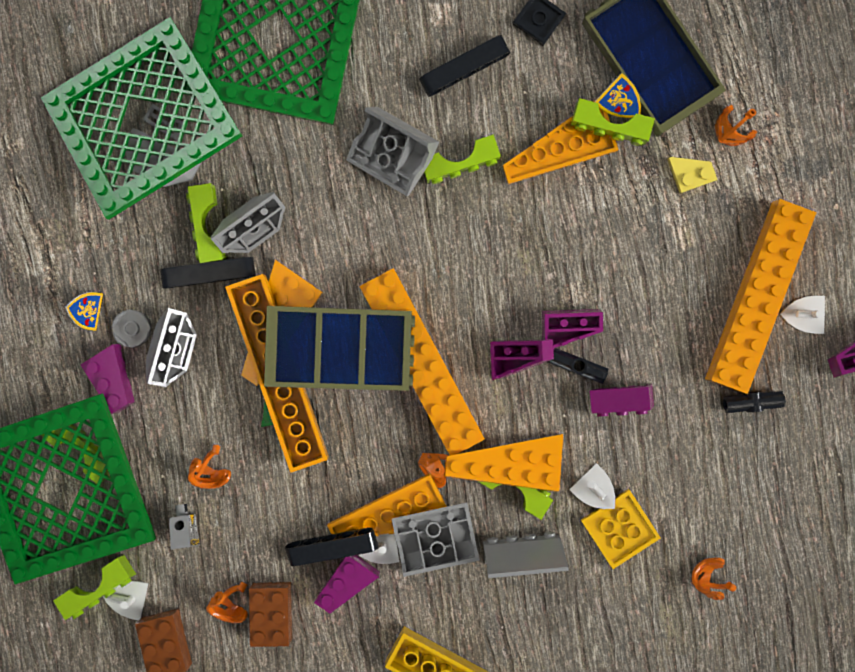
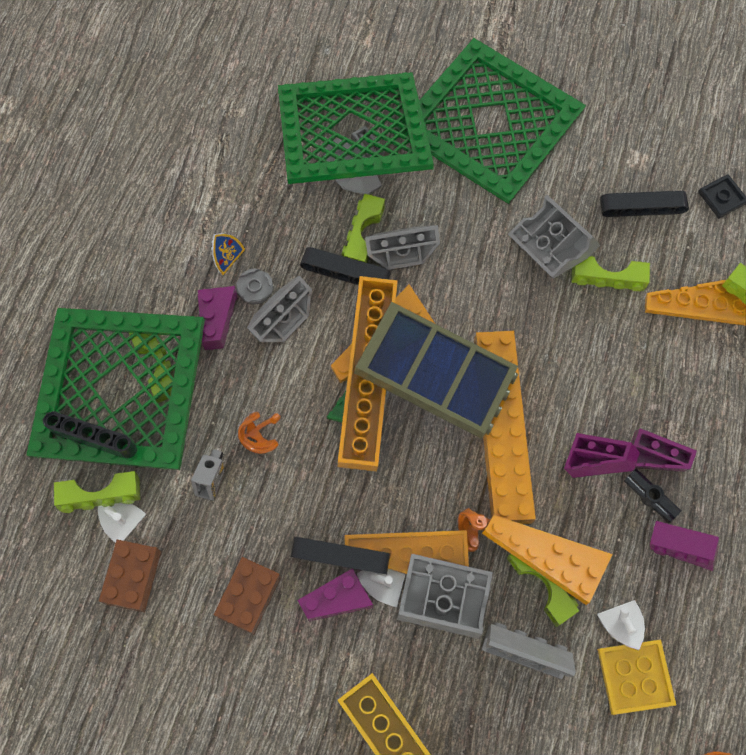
camera: 25 degrees right, 20 degrees down
(51, 551) = (83, 429): none -> black beam
(232, 613) = (211, 579): orange helmet -> none

